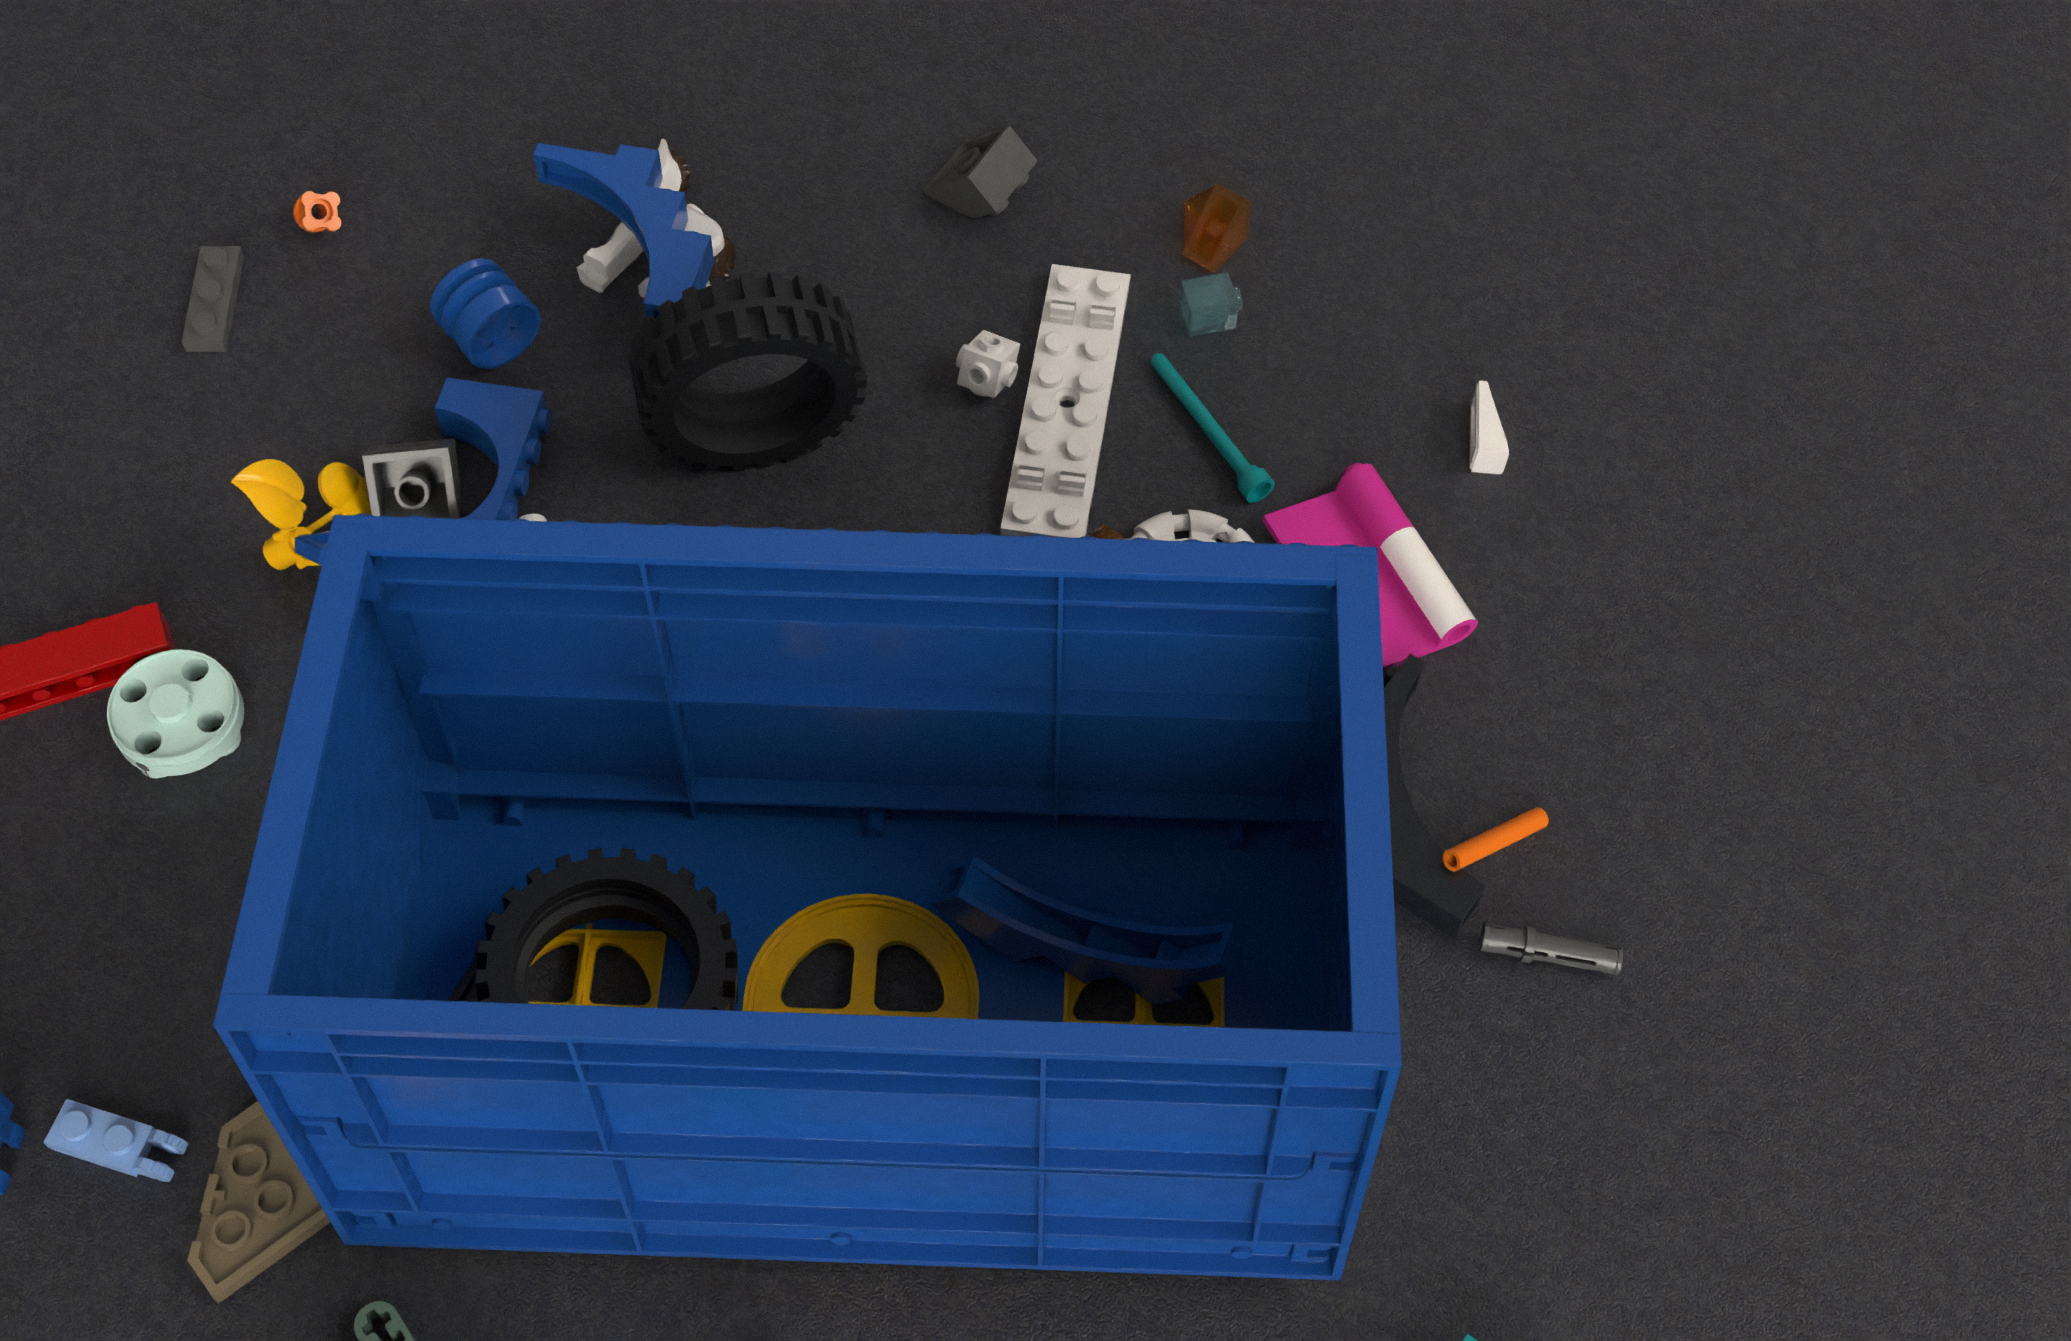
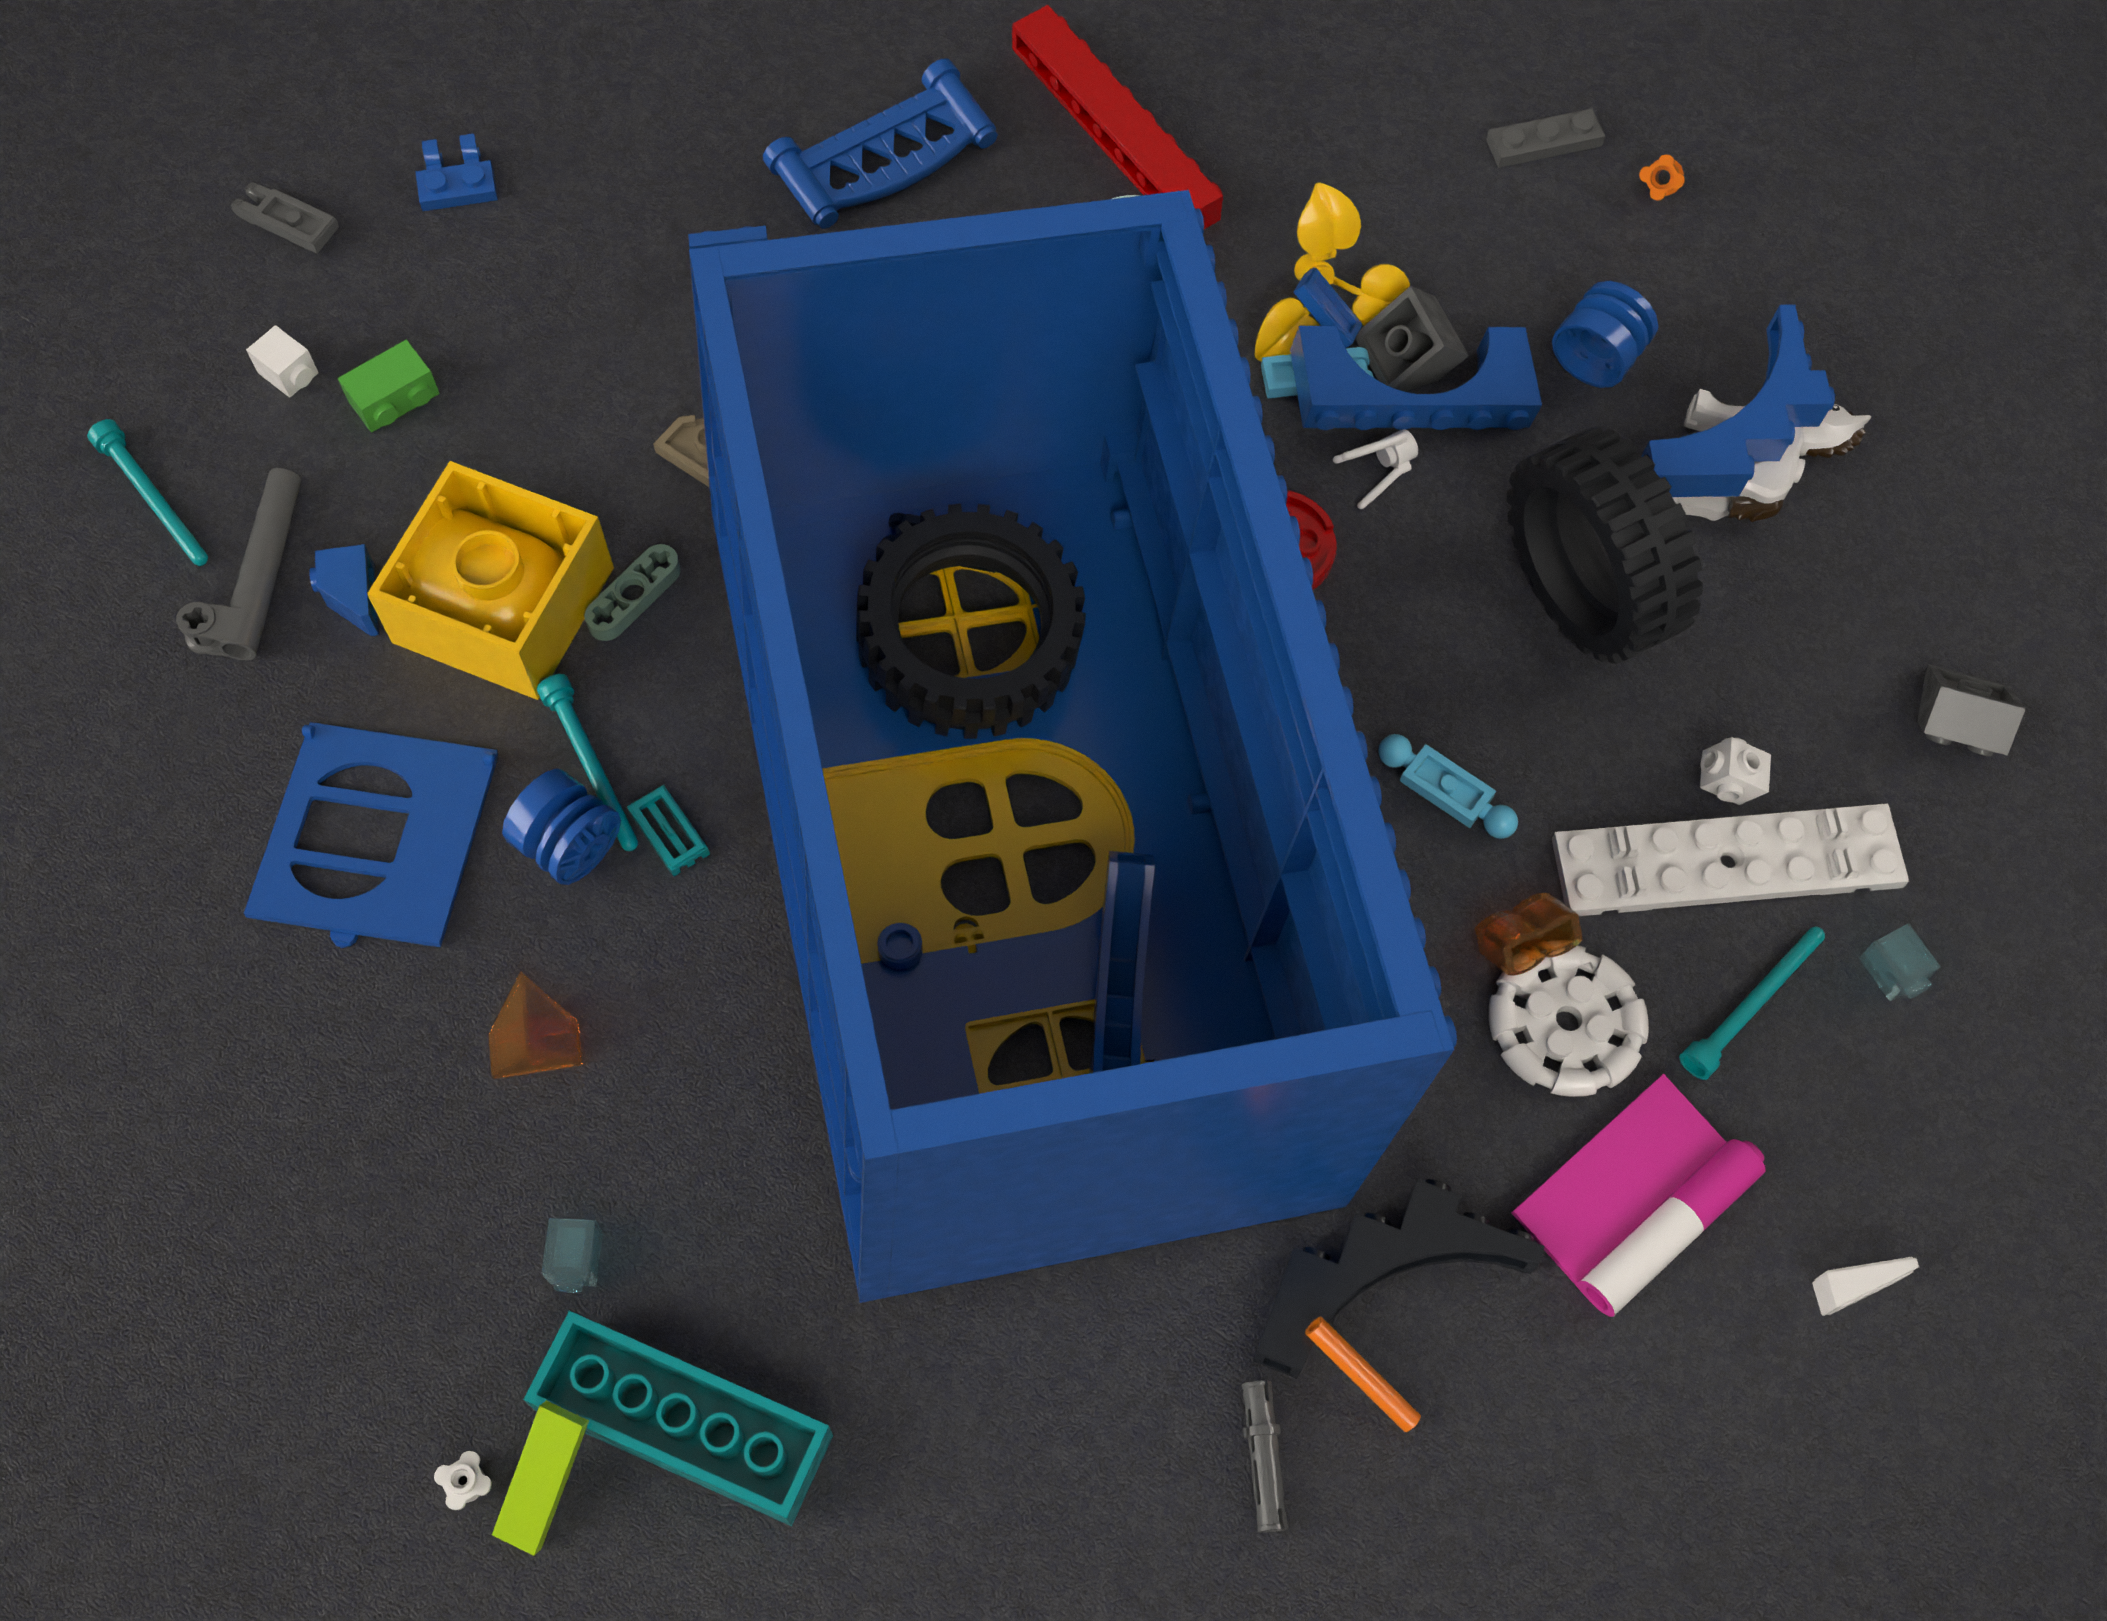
camera: 75 degrees right, 5 degrees up
(1215, 226) = (2004, 952): clear orange slope -> none

